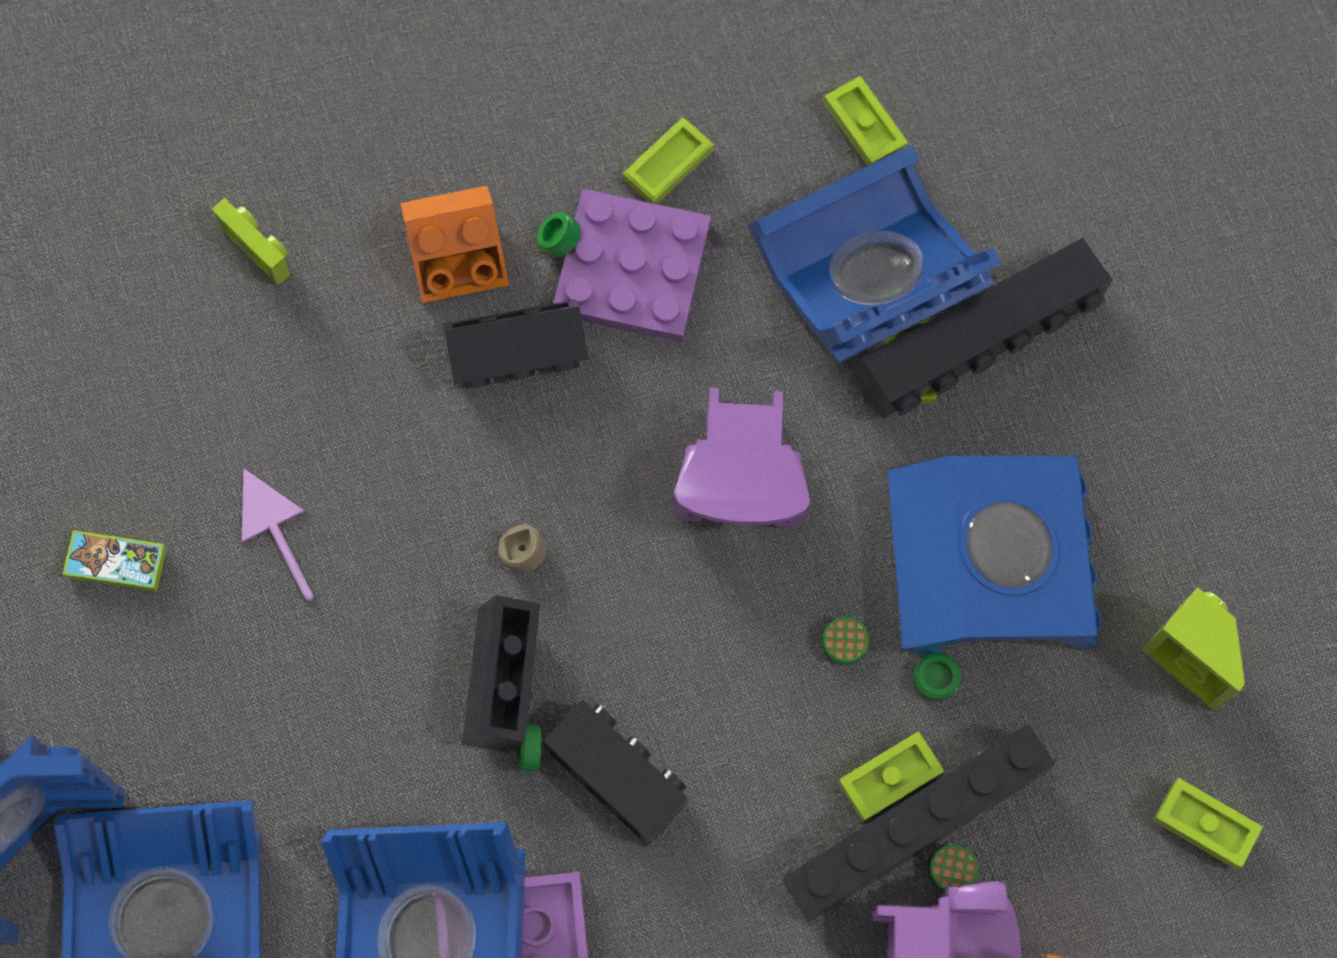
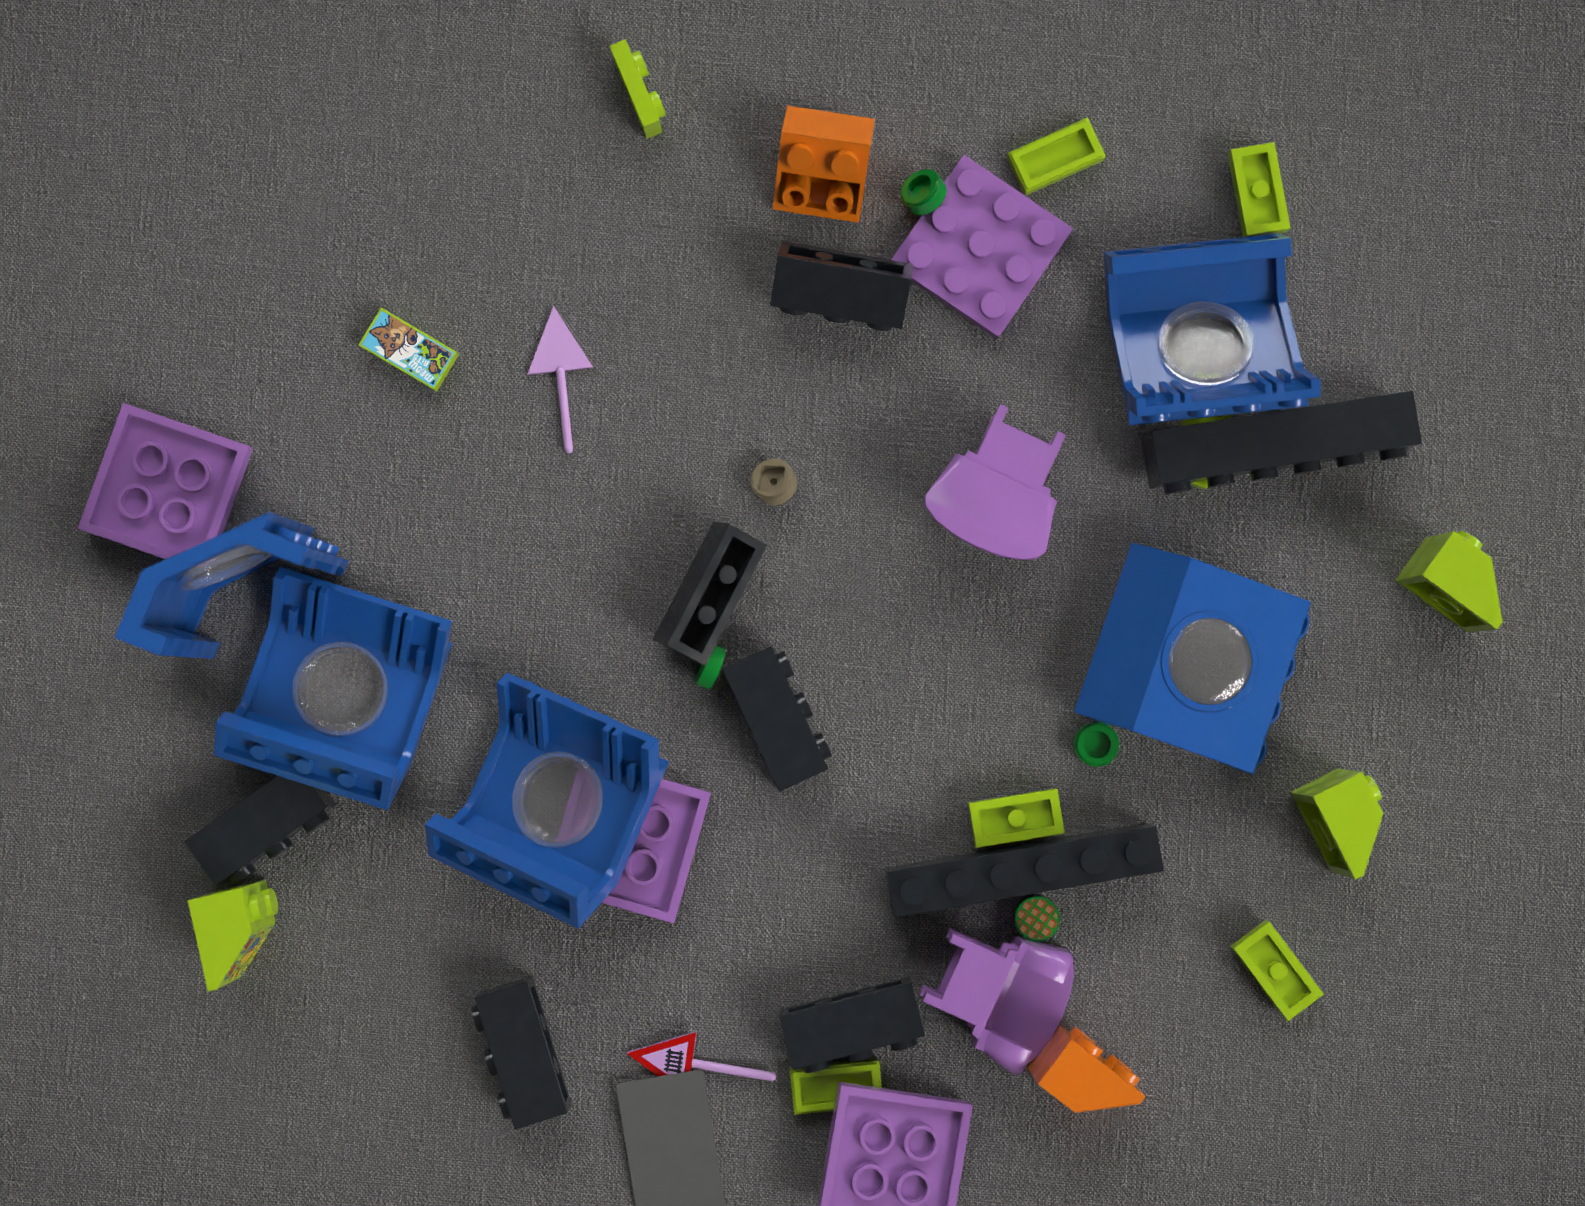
camera: 25 degrees right, 15 degrees up
(845, 641) = (1028, 679): tile -> none
(1201, 390) = (1455, 580): none -> lime slope

